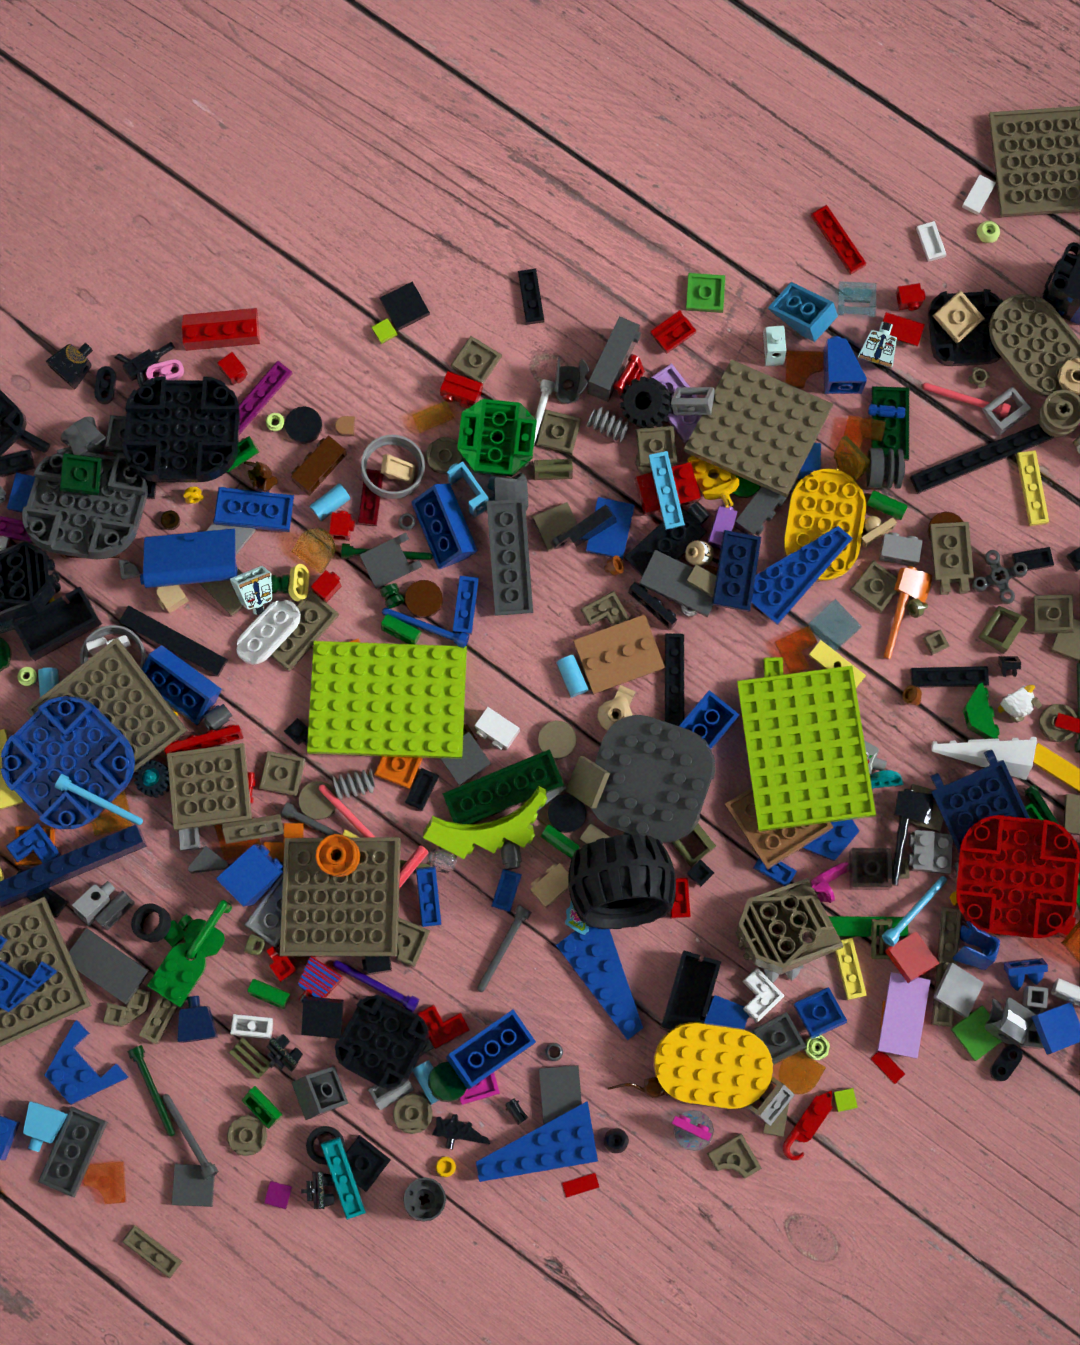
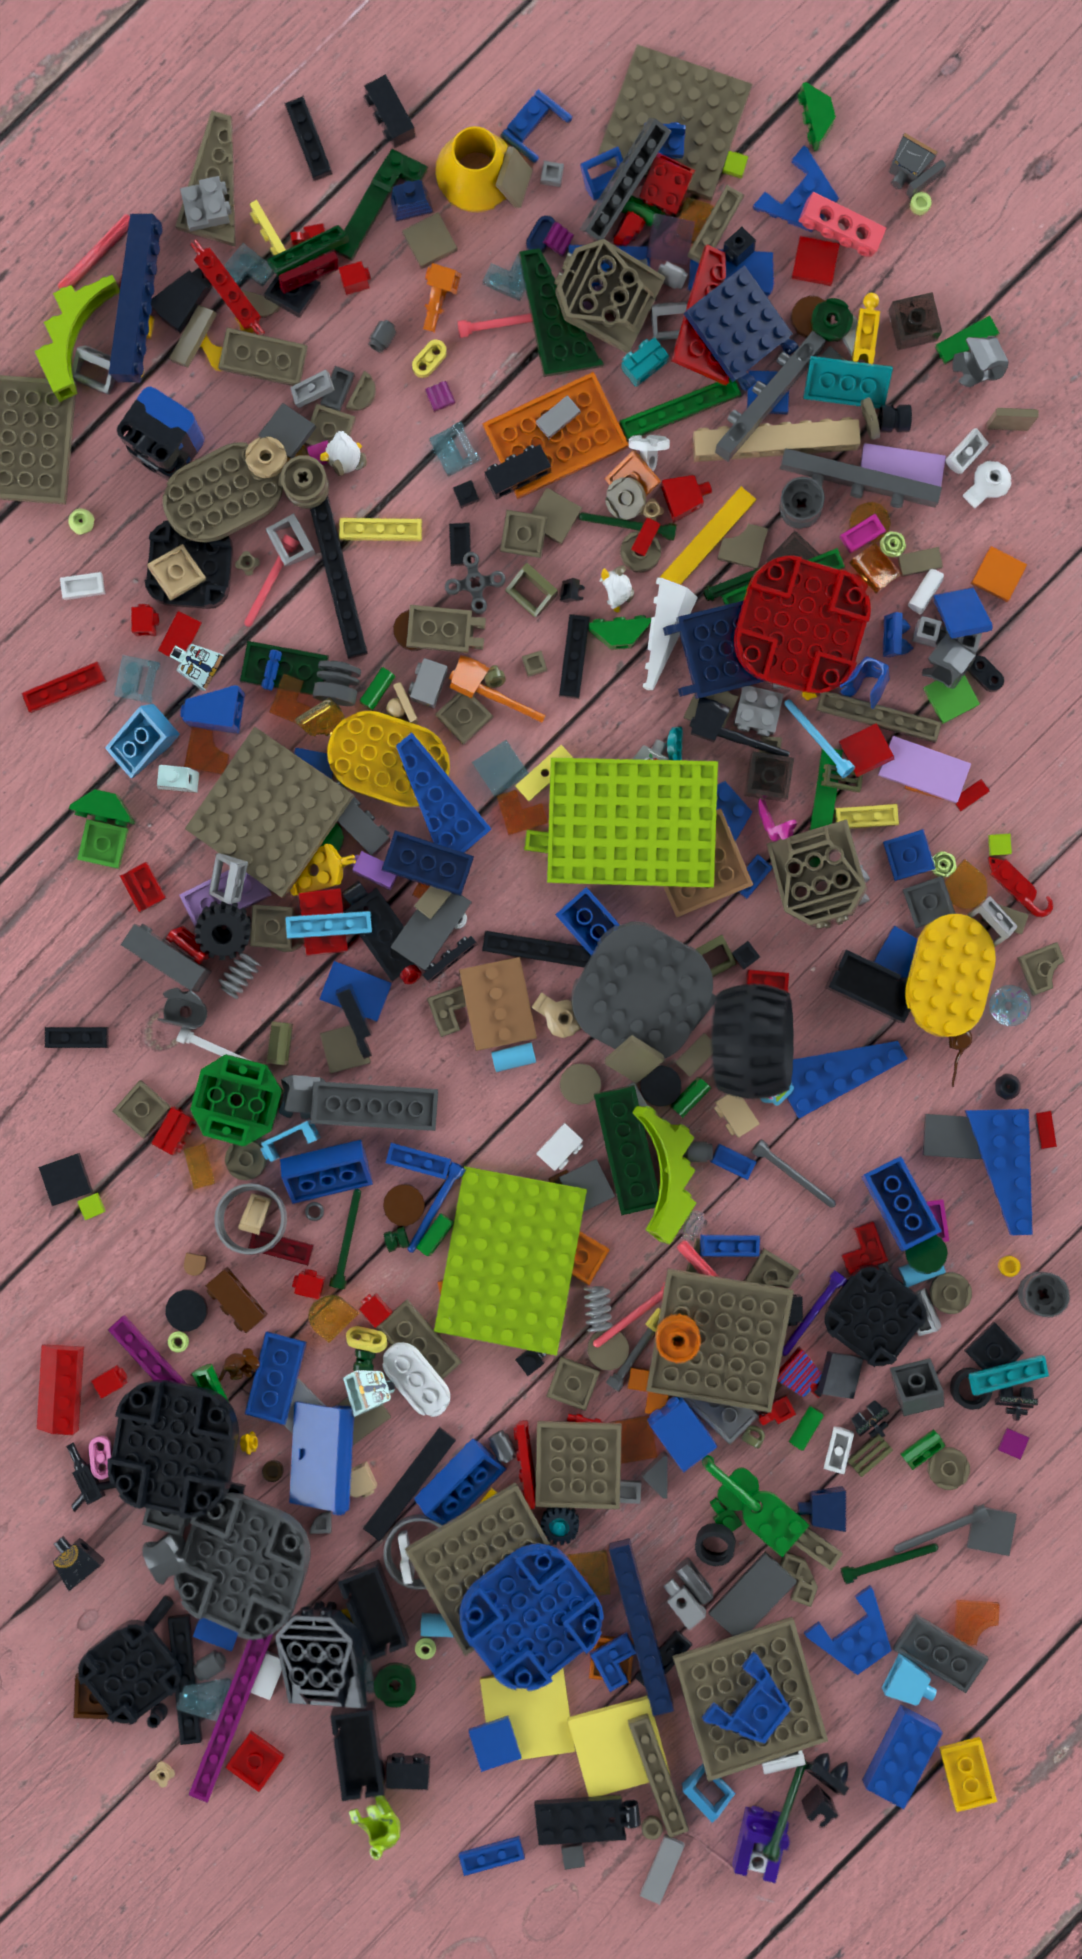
camera: 80 degrees left, 10 degrees up
(64, 783) = (555, 1623): medium azure piece -> none
(80, 474) = (209, 1568): dark green plate -> none
(105, 386) = (106, 1526): black plate -> none
(152, 1251) = (1052, 1581): dark tan tile -> none
(253, 828) = (631, 1423): dark tan plate -> none
(330, 502) = (279, 1293): medium azure brick -> none
(388, 561) = (357, 1238): dark grey flag -> none
(422, 789) = (612, 1236): black tile -> none
(454, 1129) = (973, 1250): black piece -> none
(516, 1111) = (963, 1185): black pin -> none
(547, 1054) = (902, 1133): dark grey piece -> none
(558, 432) = (238, 1030): dark tan tile -> none
(614, 565) = (399, 993): dark orange tile -> none
(633, 573) = (410, 974): none -> red tile
(684, 1123) = (1005, 1014): dark pink plate -> none
(699, 553) = (400, 899): tan head -> none
(738, 287) = (104, 807): none -> green slope
(766, 995) = (884, 908): white tile -> none
(912, 695) = (589, 699): dark orange tile -> none
(958, 990) = (906, 708): light grey tile -> none
(979, 195) = (36, 523): white tile -> none

